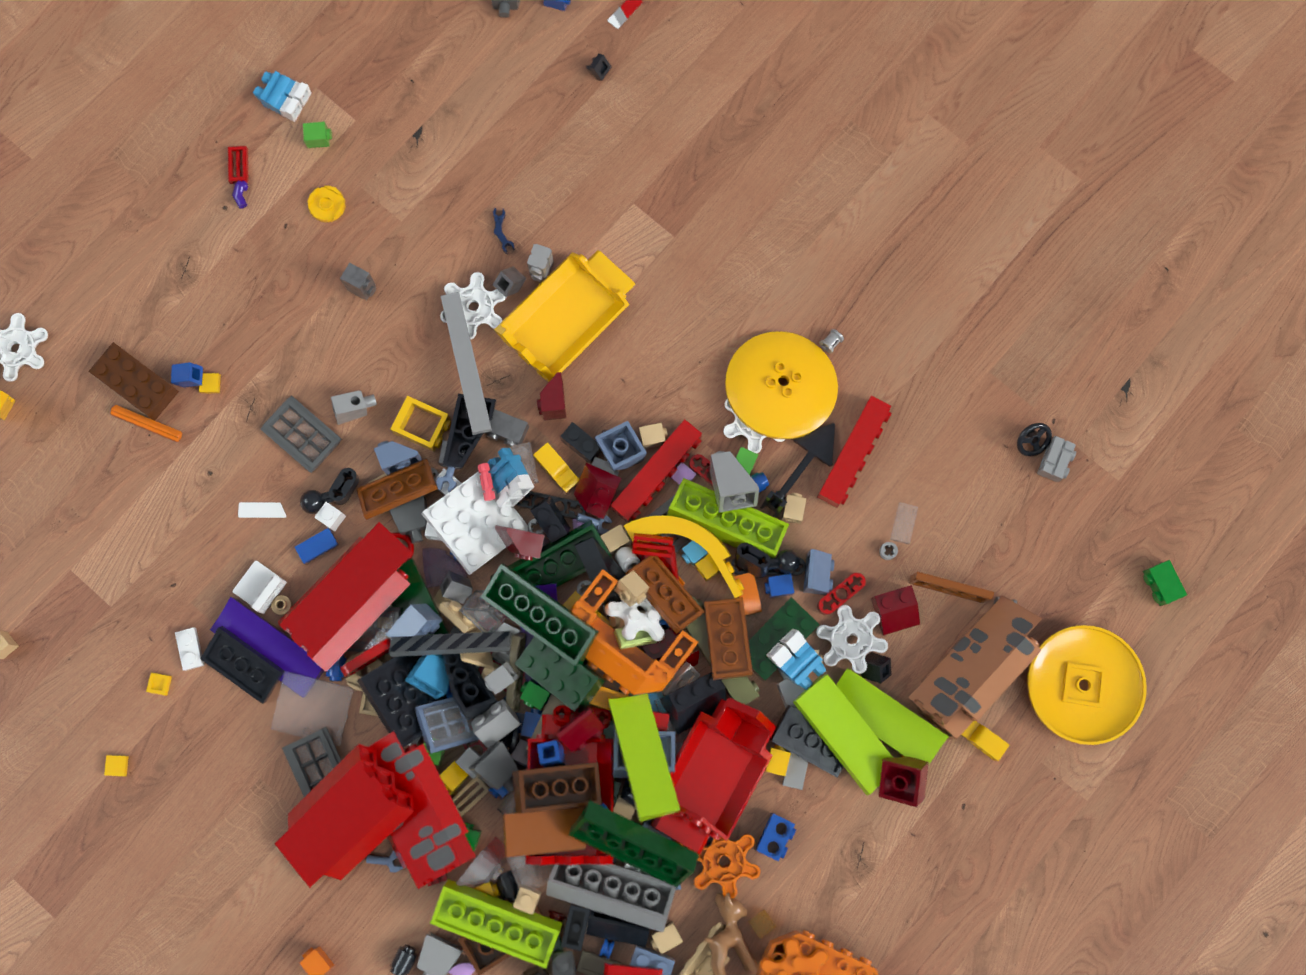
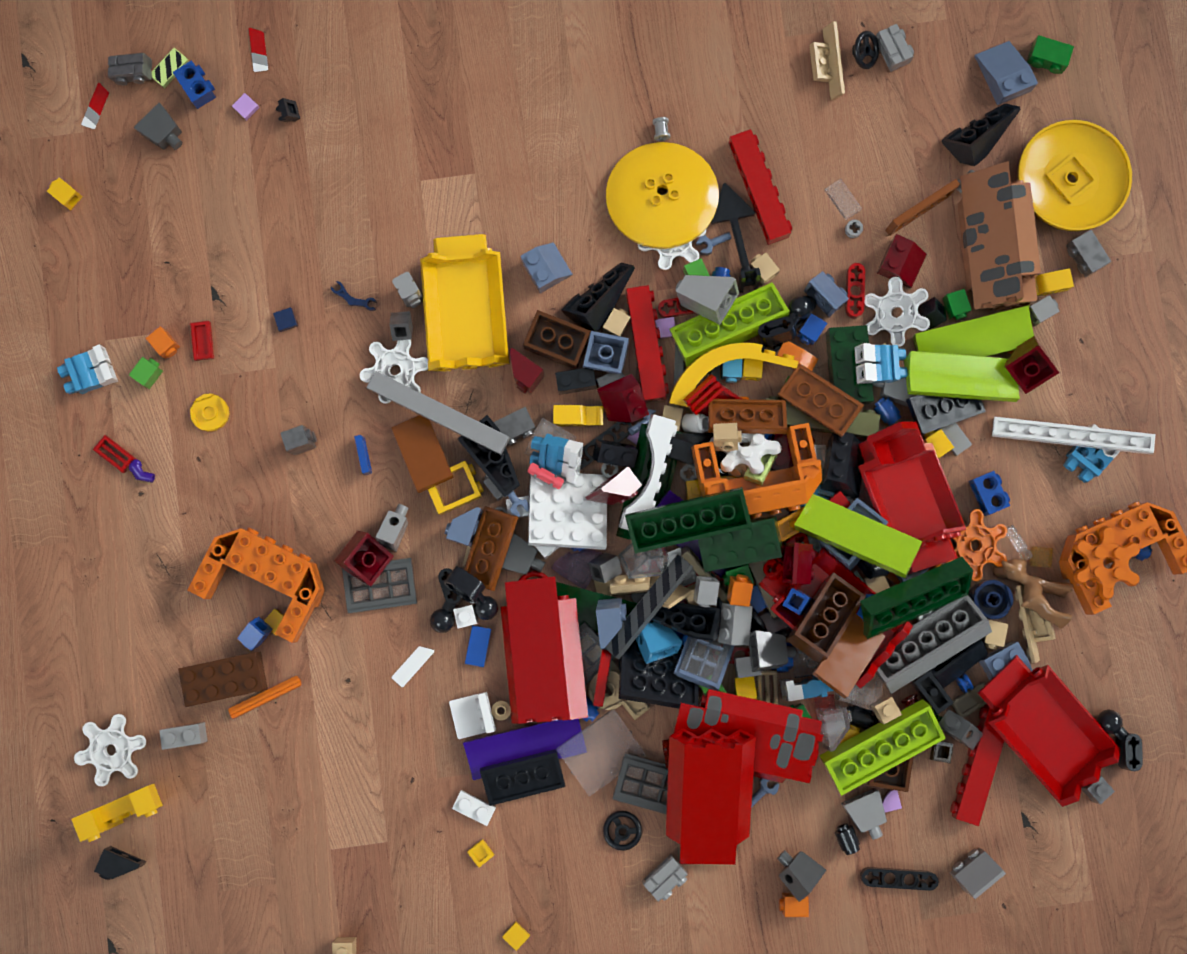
camera: 45 degrees left, 5 degrees up
(67, 389) = (183, 735): none -> light grey brick
(245, 342) = (268, 564): none -> orange wedge
(253, 842) = (665, 878): none -> light grey brick
(270, 762) = (622, 837): none -> black piece
(310, 404) = (364, 558): none -> dark red slope
(343, 945) = (800, 873): none -> dark grey torso
(349, 127) = (163, 343): none -> orange brick
(351, 501) = (471, 590): none -> black beam
(375, 153) = (202, 340): none -> red tile
(389, 338) = (363, 455): none -> blue tile
(426, 378) = (422, 453): none -> dark orange tile
(442, 197) = (285, 319): none -> dark blue tile
(489, 821) = (802, 690): none -> hips
(523, 703) = (740, 590): none -> orange brick
(575, 36) = (245, 106): none -> lavender tile
(590, 537) = (659, 435): none -> white arch
(599, 401) = (556, 339): none -> reddish brown brick
(649, 347) = (545, 266): none -> sand blue slope
(651, 408) = (597, 303): none -> black wedge
(692, 922) = (1001, 596): none -> dark blue brick
(756, 896) = (1018, 543): none -> clear axle
(768, 699) = (888, 411): none -> blue brick
(779, 453) = (712, 242): none -> sand blue bar
(873, 895) = (1090, 460): none -> dark azure hips
(879, 864) = (1073, 435): none -> white tile
(901, 681) = (957, 304): none -> green brick
(958, 753) = (1043, 310): none -> light grey brick
(997, 418) = (827, 61): none -> tan bracket
(1035, 749) = (1088, 253): none -> flat silver brick
(1046, 585) = (978, 139): none -> black wedge
(1118, 561) = (1006, 72): none -> sand blue slope

